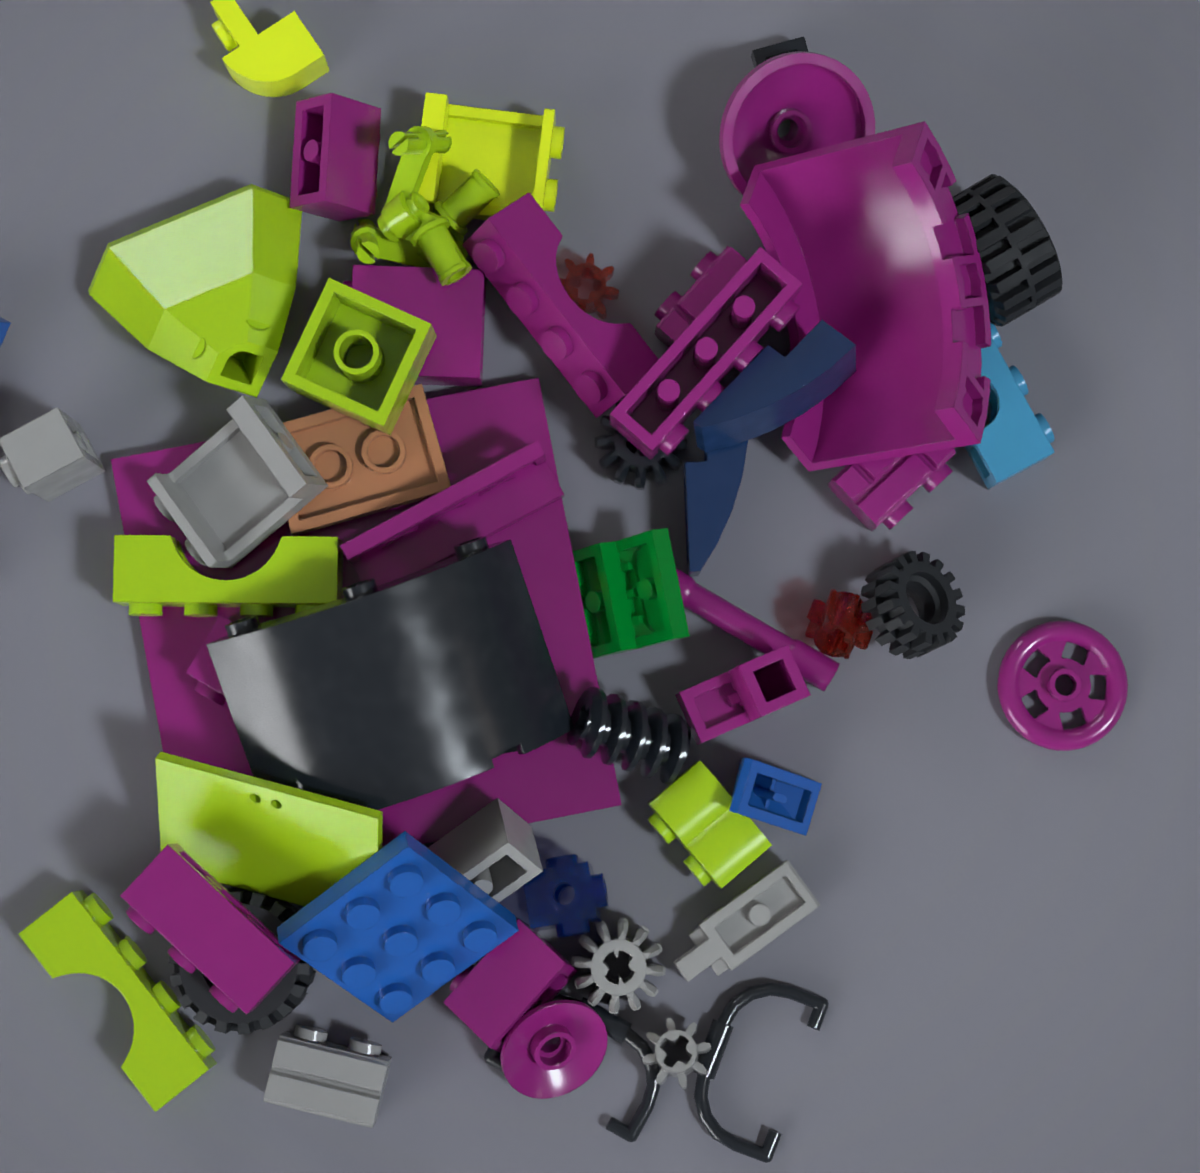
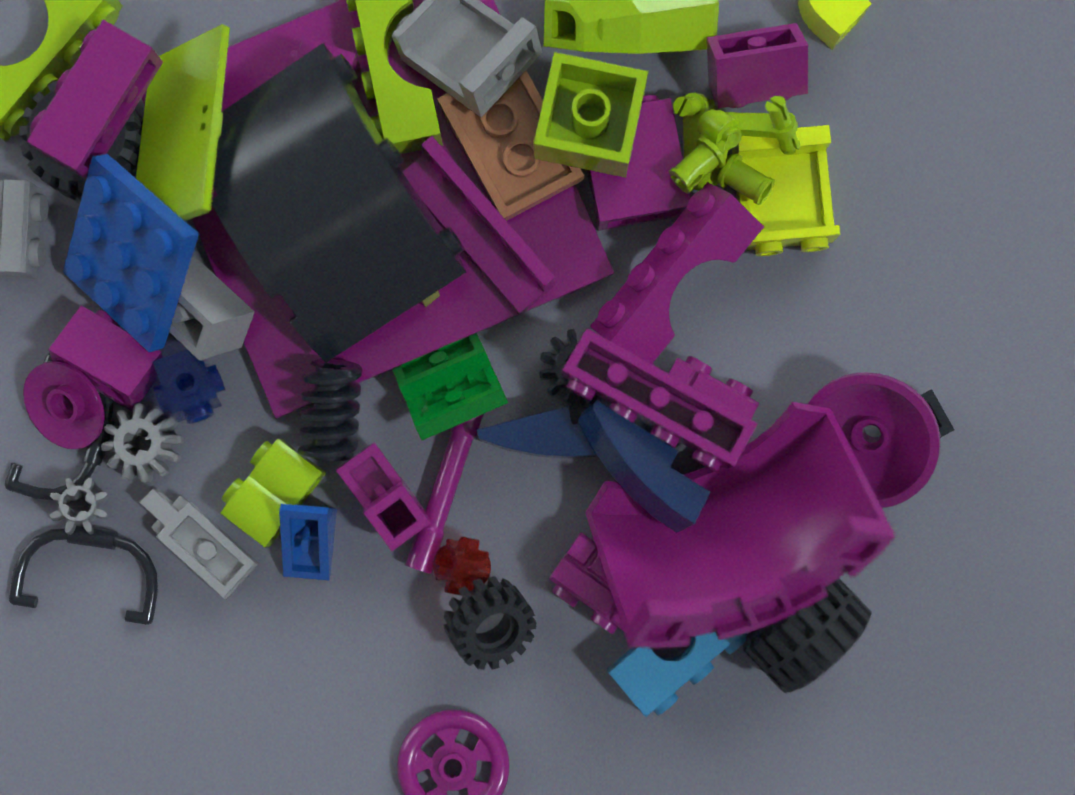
camera: 80 degrees right, 0 degrees up
(596, 298) = (705, 285): clear red gear -> none

